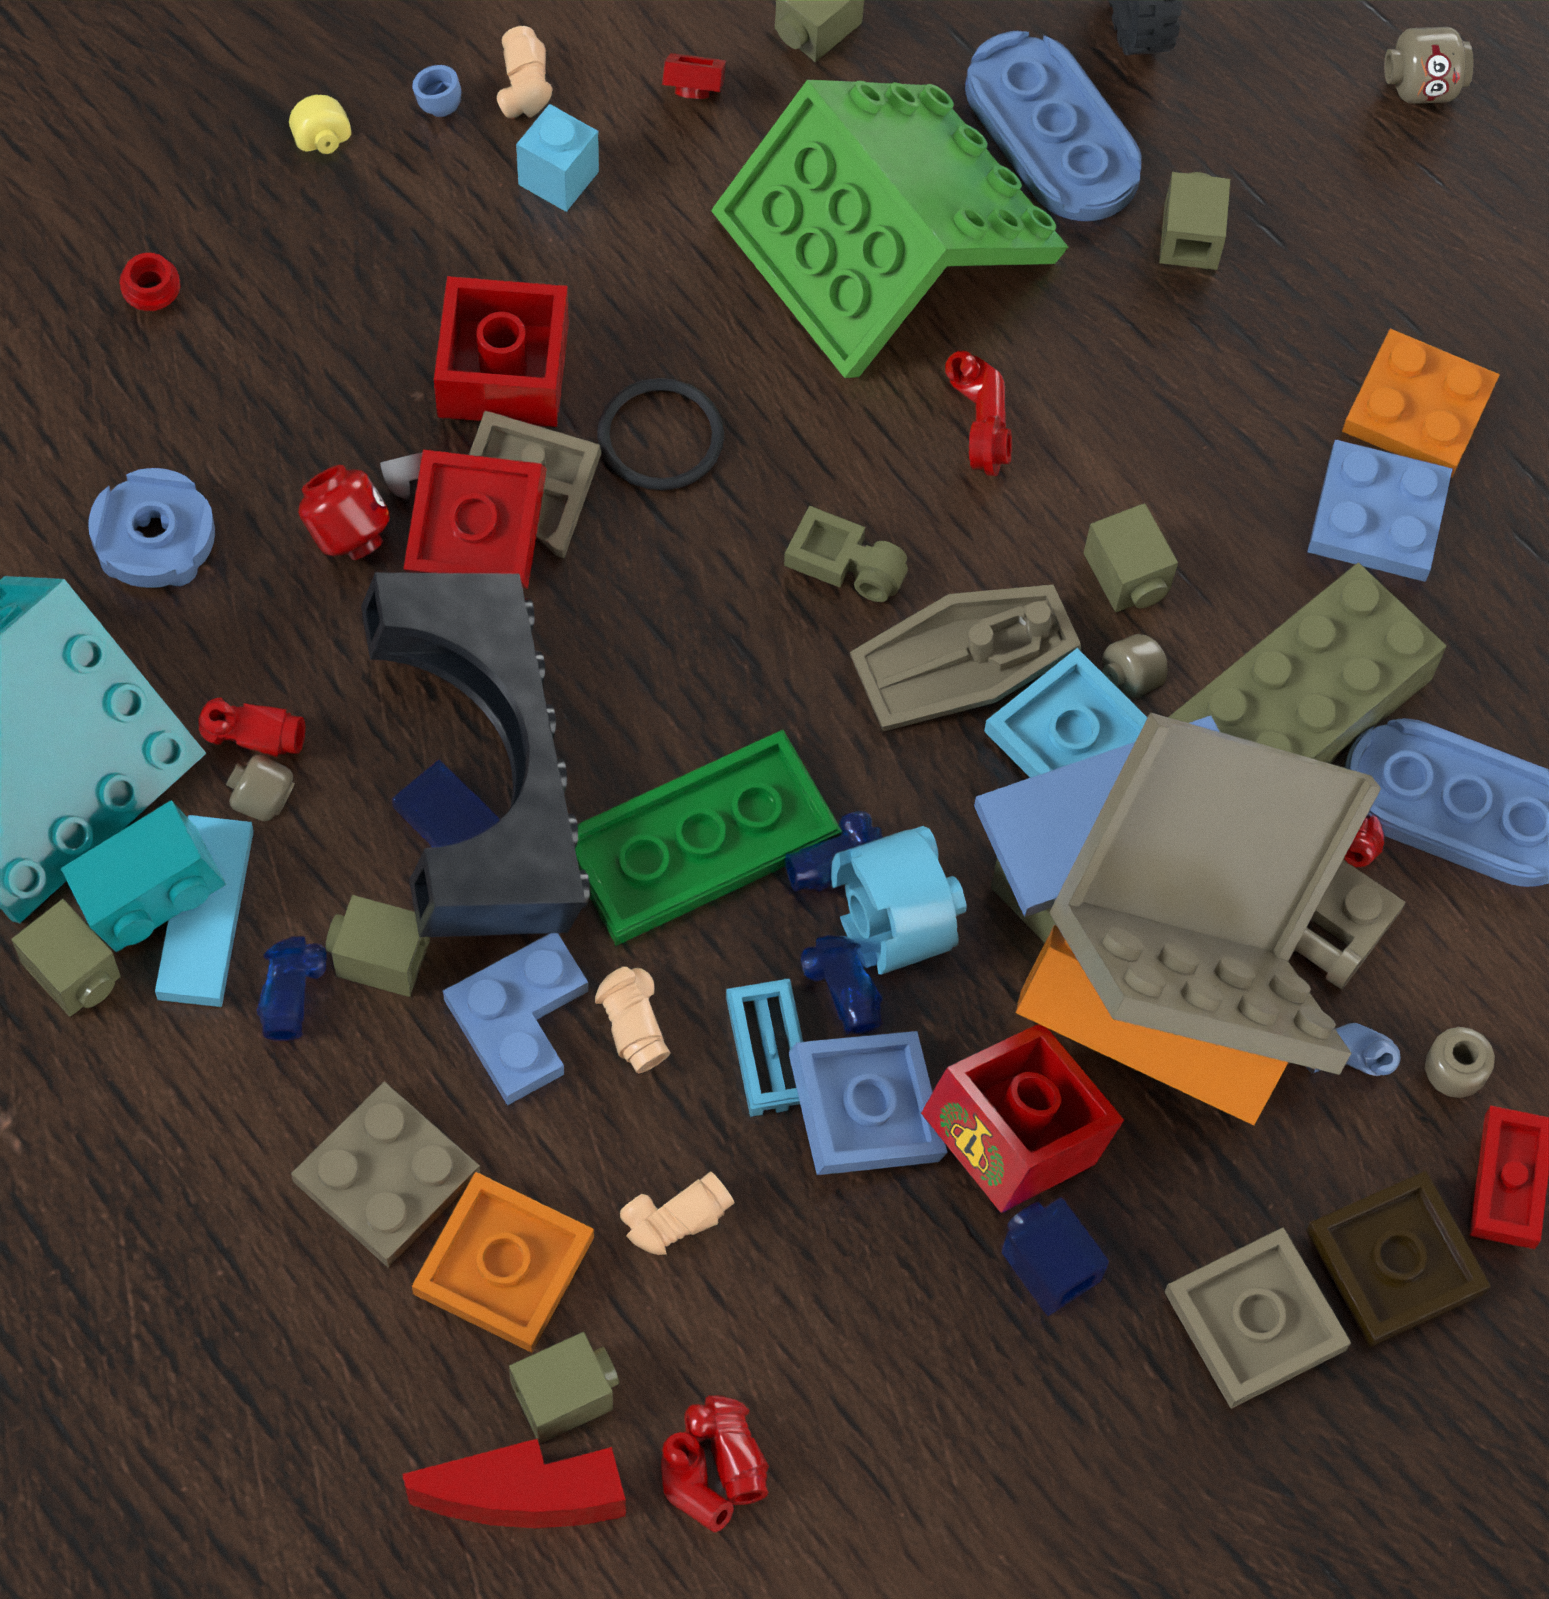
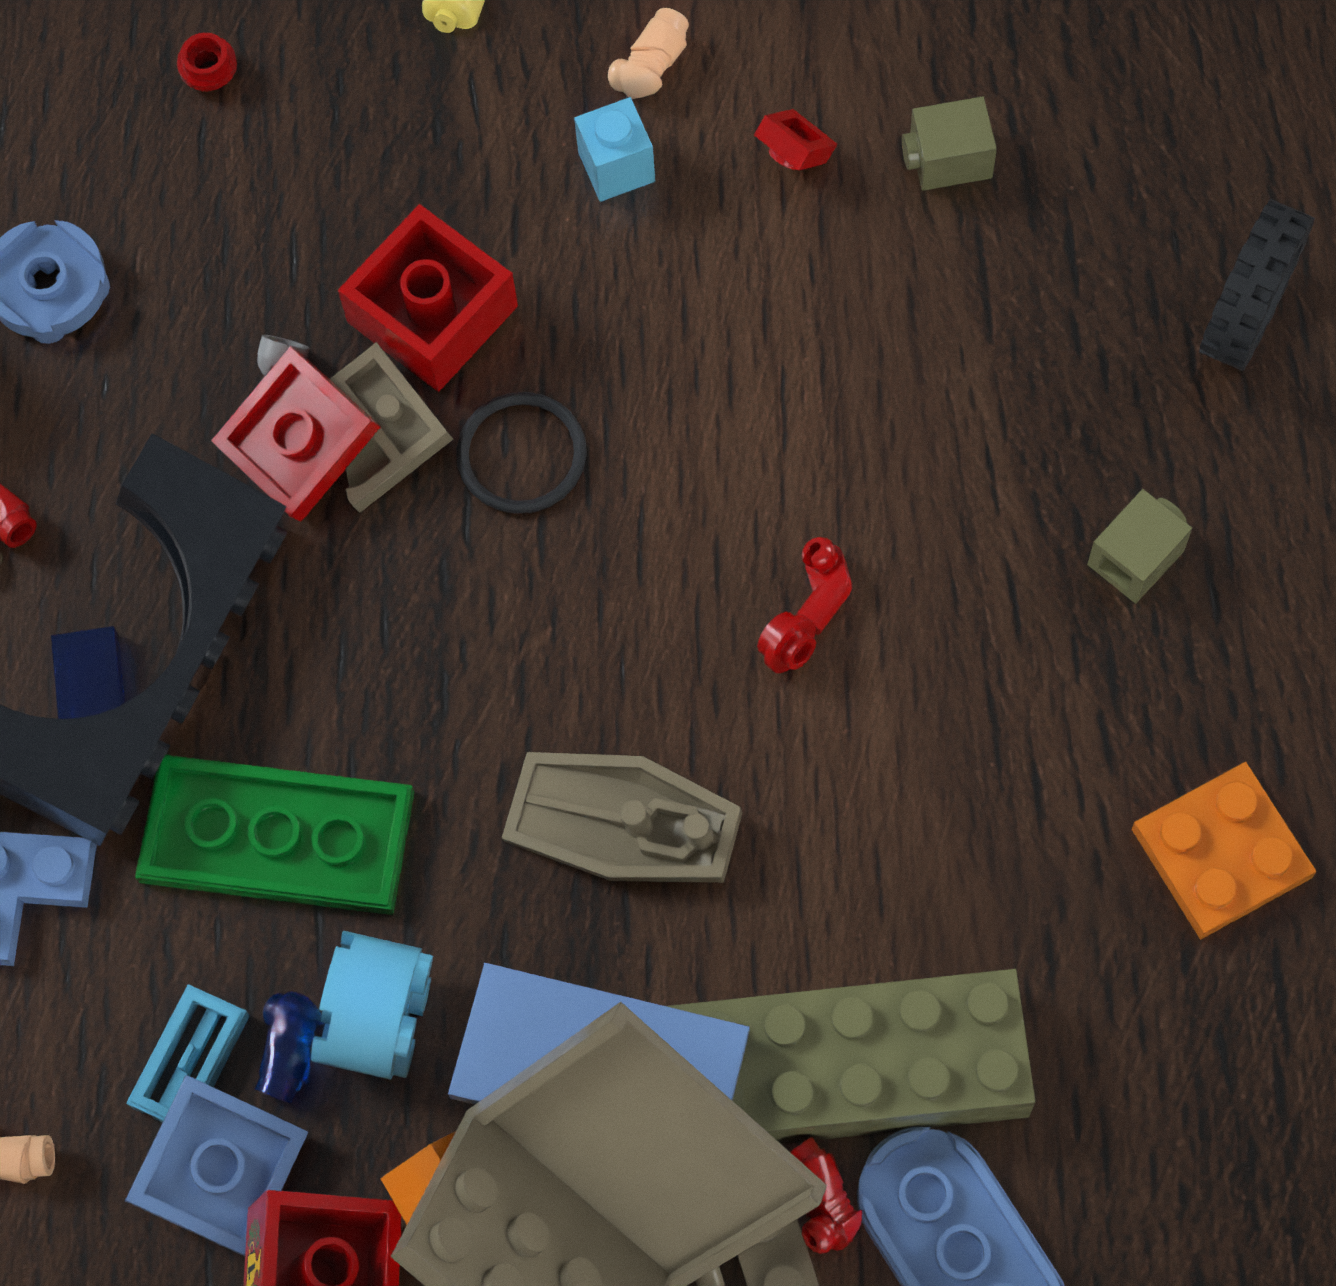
camera: 45 degrees right, 5 degrees up
(344, 512) = (195, 361): red head -> none
(437, 90) = (565, 28): medium blue hinge -> none
(634, 1025) = (87, 964): light nougat arm -> none
(813, 864) = (397, 927): clear blue arm -> none
(833, 546) = (580, 648): olive plate -> none
(867, 204) = (860, 355): bright green bracket -> none
(1053, 126) = (1087, 377): medium blue tile -> none
(1065, 718) = (656, 943): medium azure plate -> none
(1130, 558) = (828, 828): olive brick -> none
(1135, 665) = (766, 926): dark tan piece -> none
(1380, 510) = (1102, 927): medium blue plate -> none

